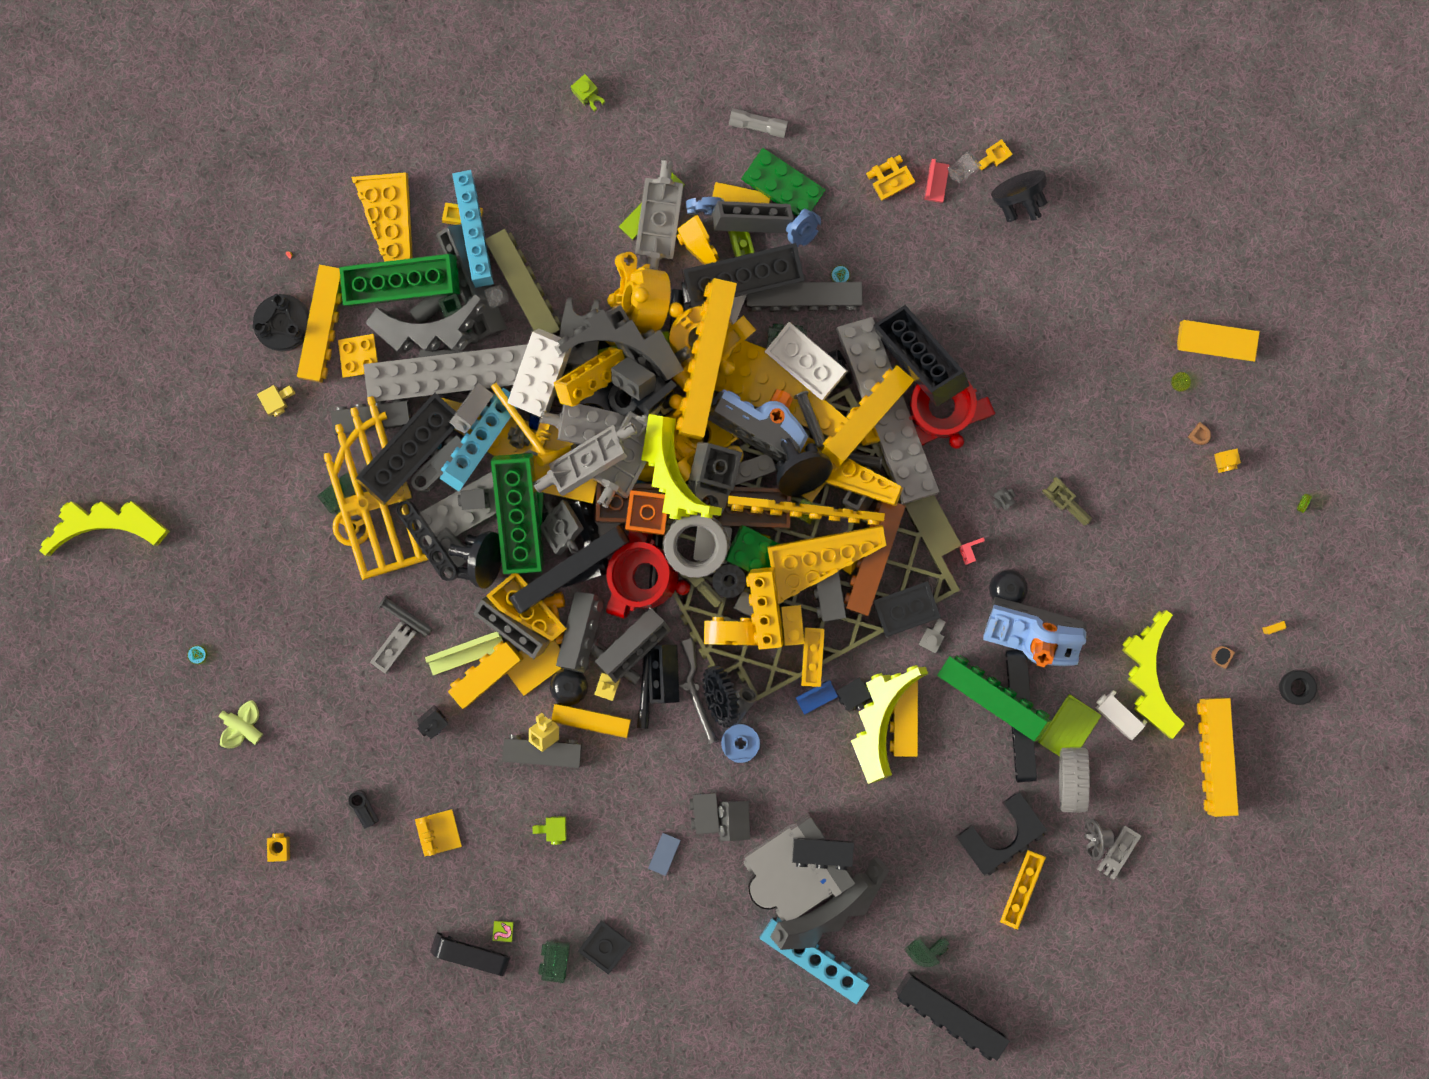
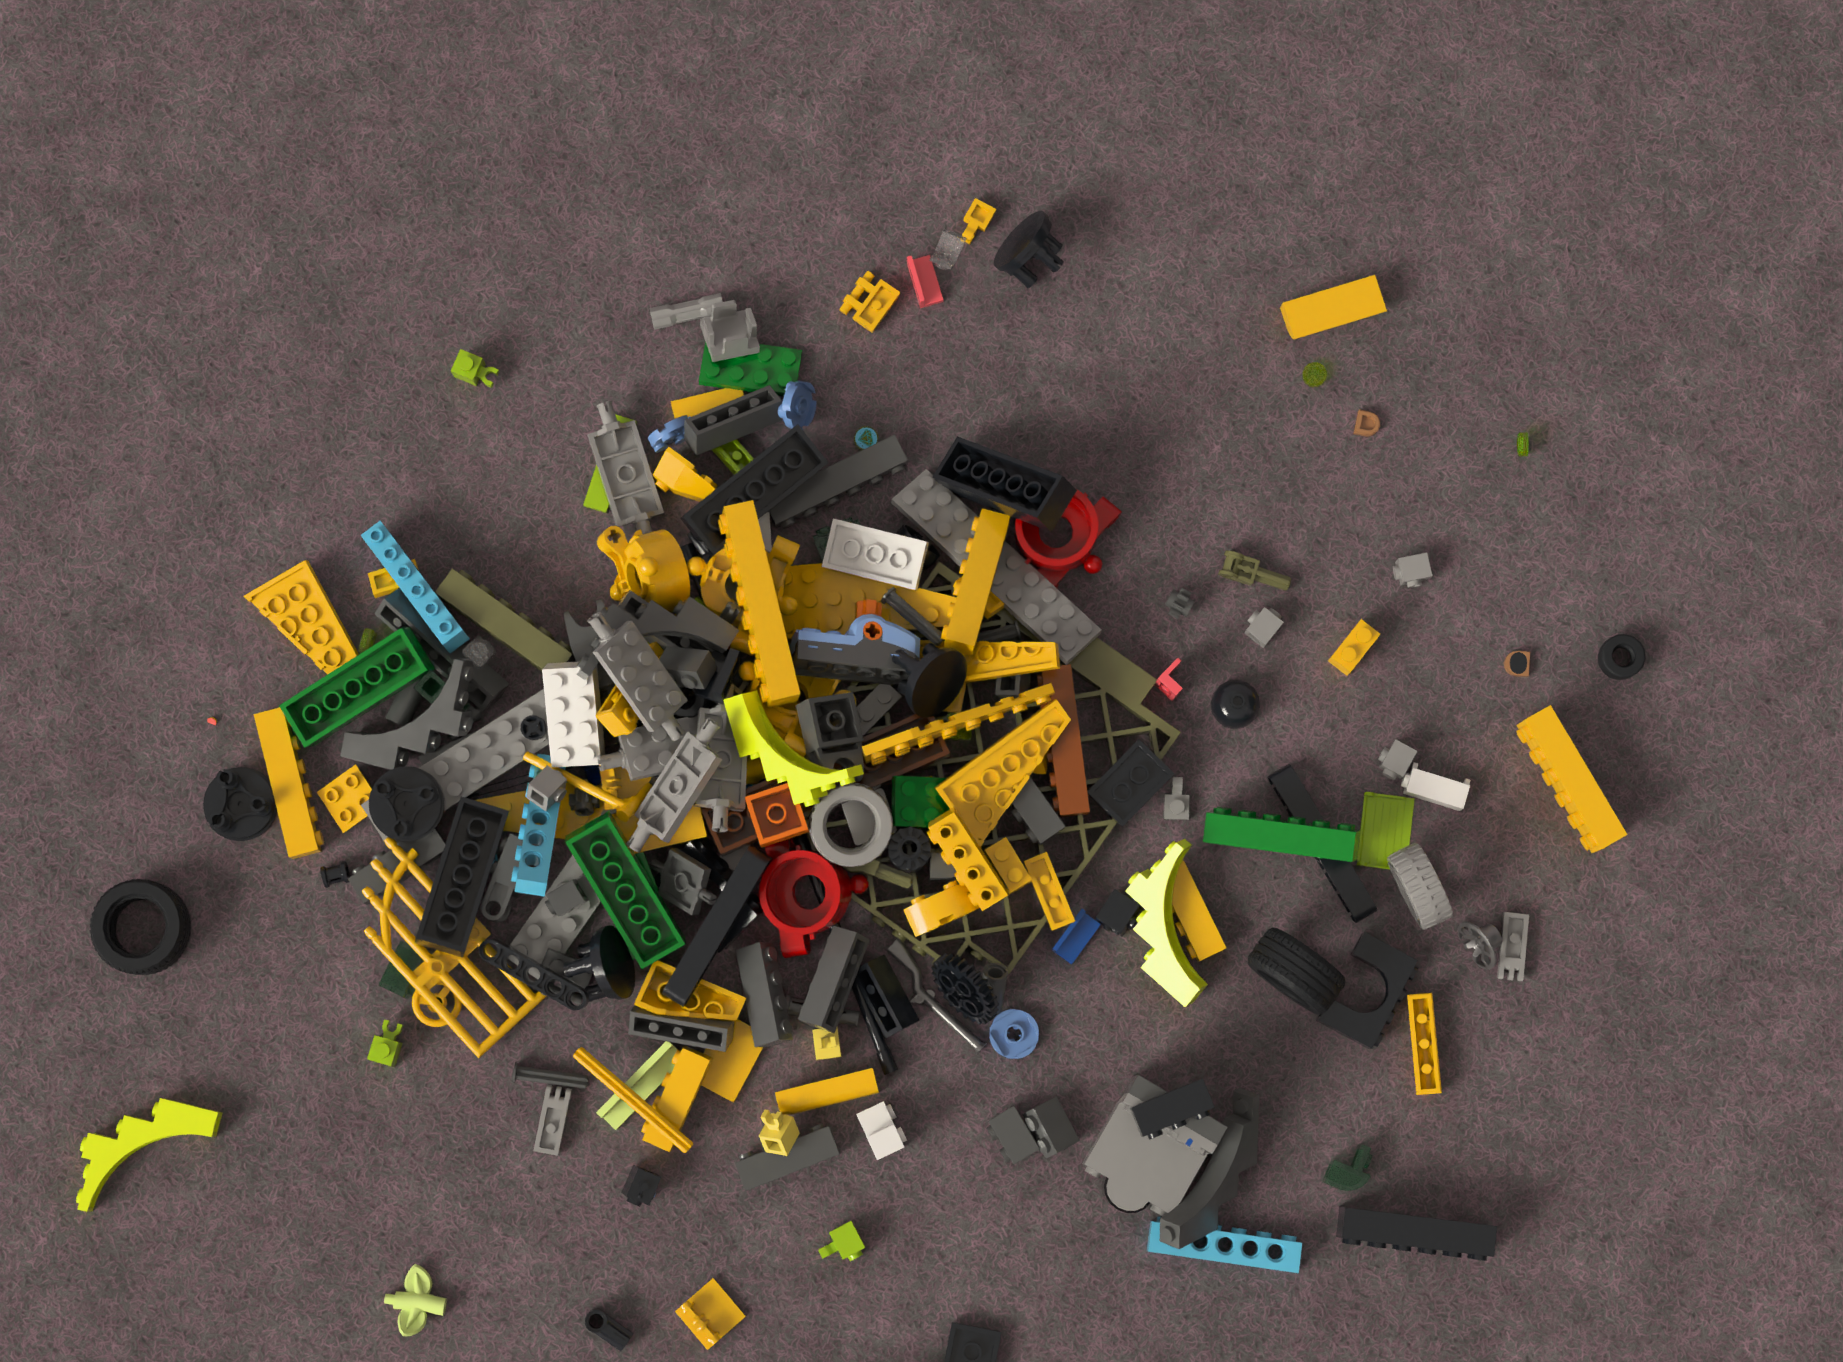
camera: 30 degrees left, 5 degrees down
(145, 368) = (105, 919): none -> black tyre
(197, 654) = (324, 1242): tile -> none
(274, 400) = (274, 898): light yellow brick -> none
(301, 541) = (385, 1048): none -> lime brick
(323, 403) = (335, 874): none -> black bush
(395, 379) = (406, 803): none -> black piece
(423, 250) = (367, 640): none -> clear neon green tile
(454, 661) = (633, 1099): none -> yellow axle
(471, 408) = (512, 794): light grey brick -> none
(497, 416) = (547, 788): none -> light grey brick
(505, 367) = (530, 725): none -> black wheel
(555, 602) = (717, 976): light orange brick -> none
(568, 687) = (781, 1066): black cylinder -> none
(597, 369) = (639, 675): none -> light grey plate
(615, 765) = (881, 1130): none -> white brick
(664, 854) = (988, 1208): sand blue tile -> none
(780, 152) = (730, 331): none -> light grey panel
(958, 797) = (1296, 971): none -> black tyre
(1040, 634) = (1295, 737): light blue piece -> none
(1055, 543) = (1263, 626): none -> light grey brick
(1102, 682) = (1396, 759): none -> light grey brick
(1112, 589) = (1354, 647): none -> yellow brick
(1144, 677) = (1441, 730): neon yellow arch -> none
(1180, 554) = (1412, 570): none -> light grey brick
(1227, 460) = (1412, 437): yellow brick -> none
(1274, 627) = (1558, 604): yellow tile -> none

